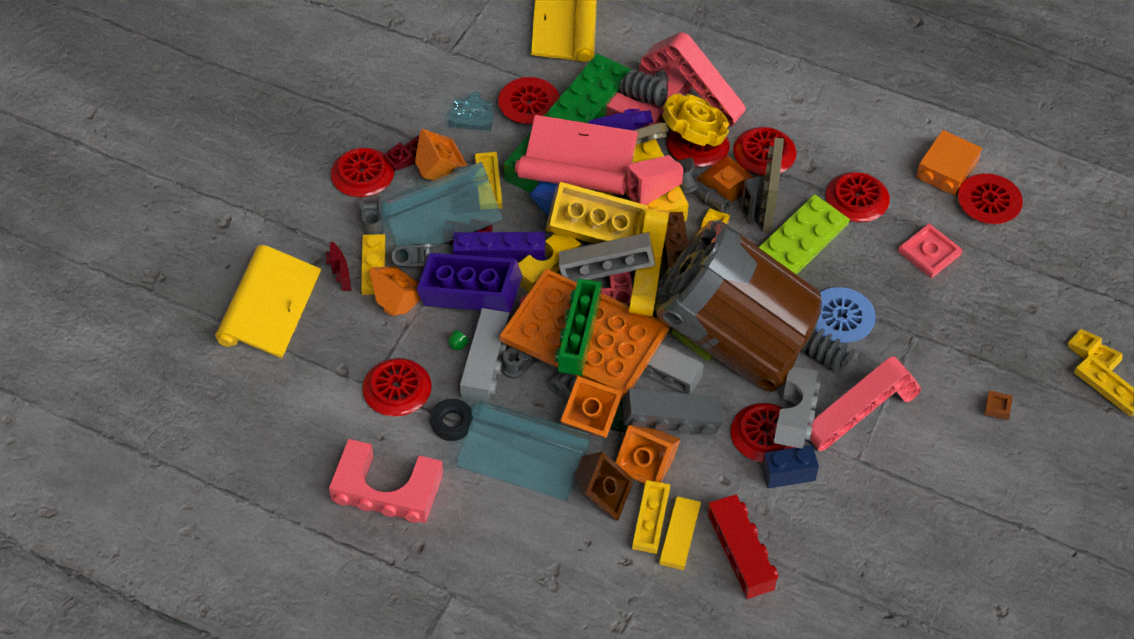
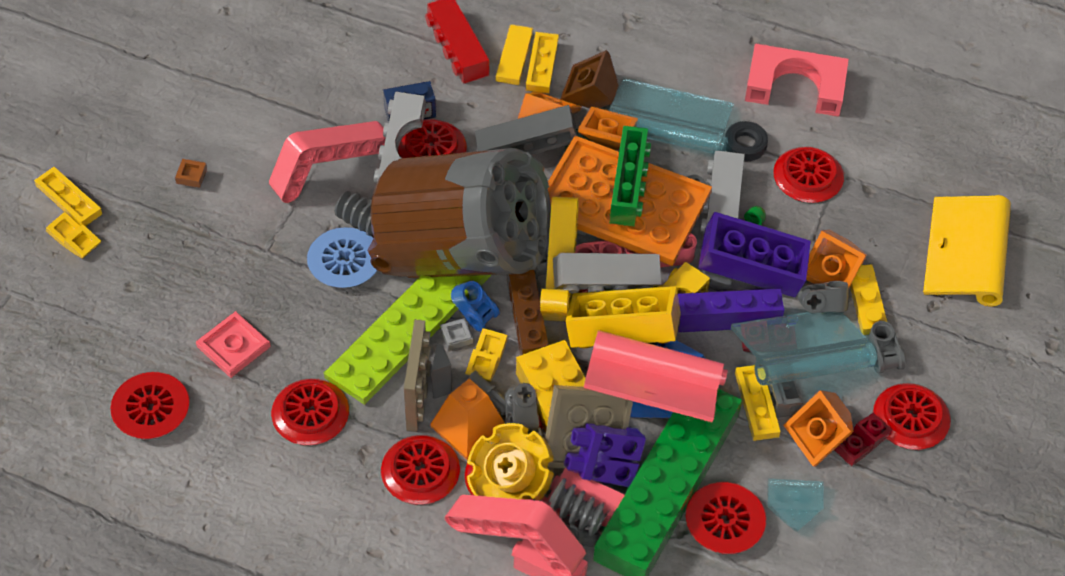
camera: 175 degrees right, 0 degrees up
(339, 266) = (904, 289): dark red slope -> none
(652, 178) = (560, 354): coral slope -> none
(948, 162) = (191, 450): orange brick -> none

